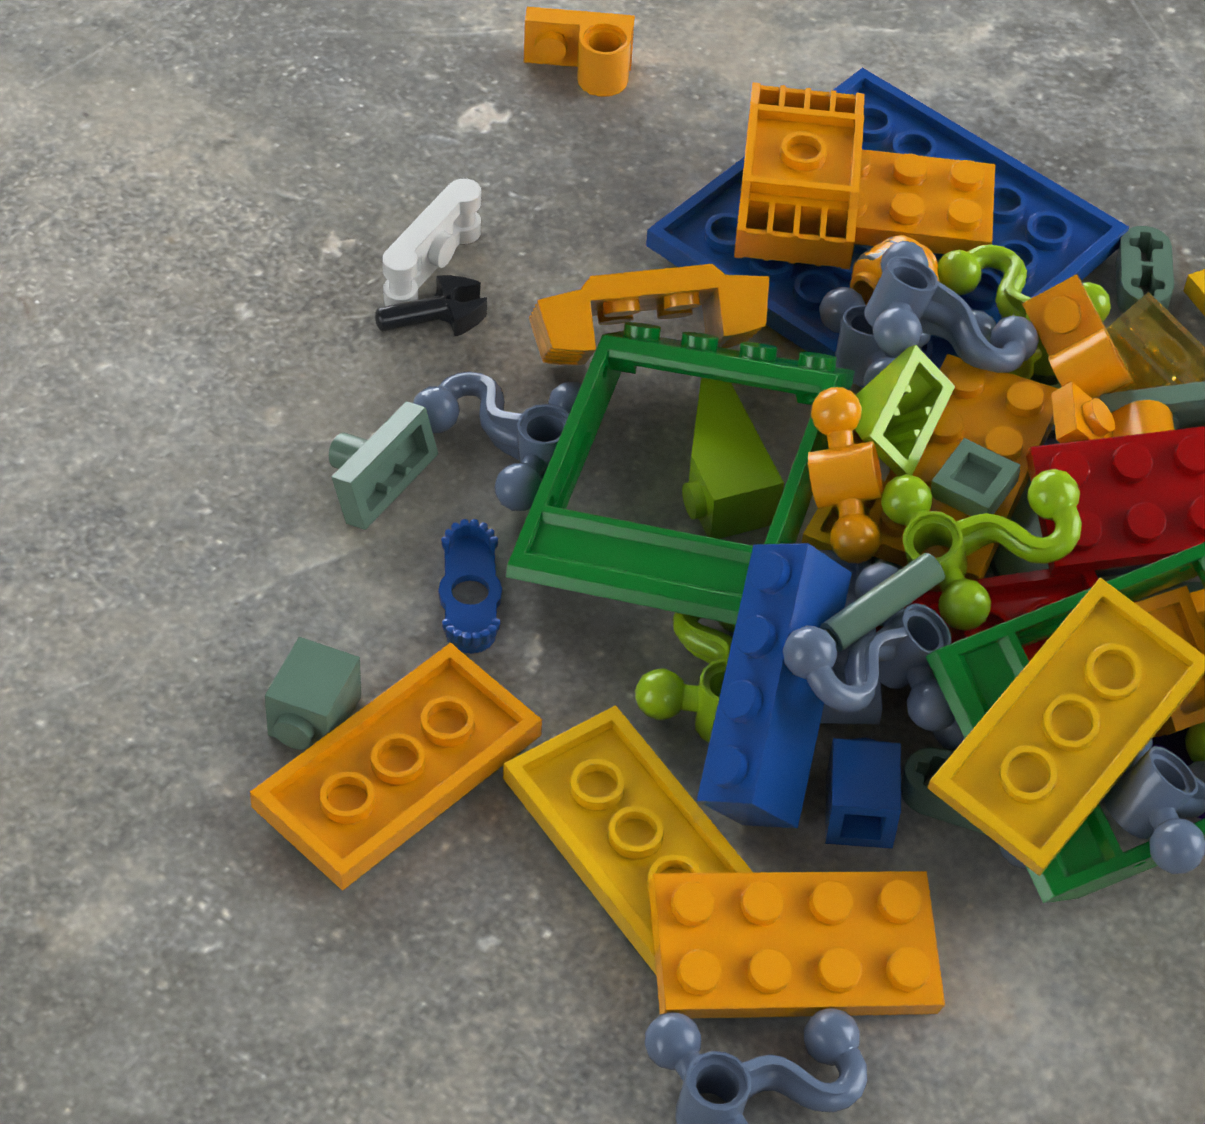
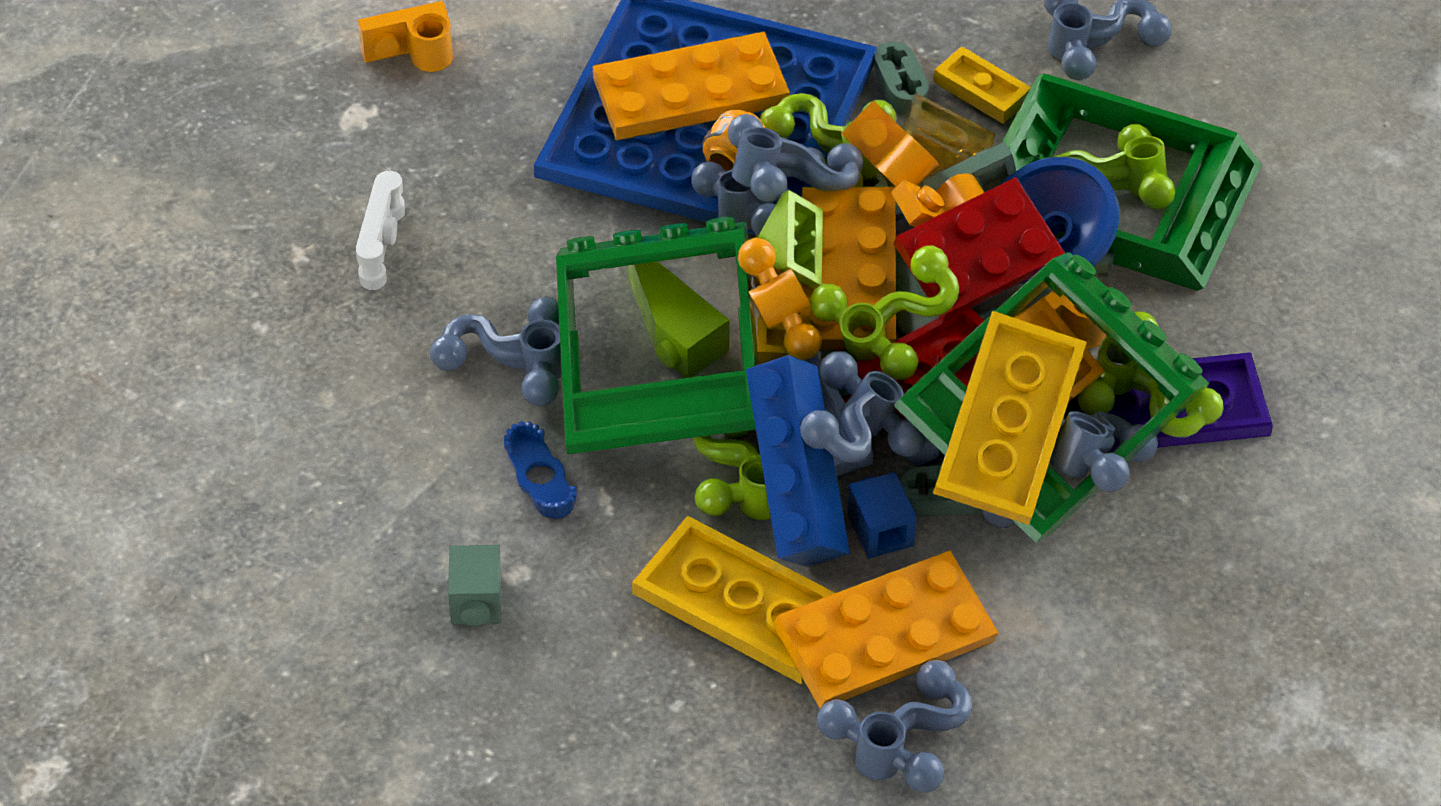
camera: 20 degrees left, 0 degrees up
(381, 468) = (432, 407): sand green tile -> none
(395, 765) = (556, 610): light orange plate -> none
(455, 302) = (410, 273): black bar -> none
(731, 307) = (621, 202): light orange plate -> none
(801, 176) = (632, 86): light orange plate -> none
(884, 601) = (850, 375): sand green piece -> none
(975, 479) = (868, 272): sand green plate -> none

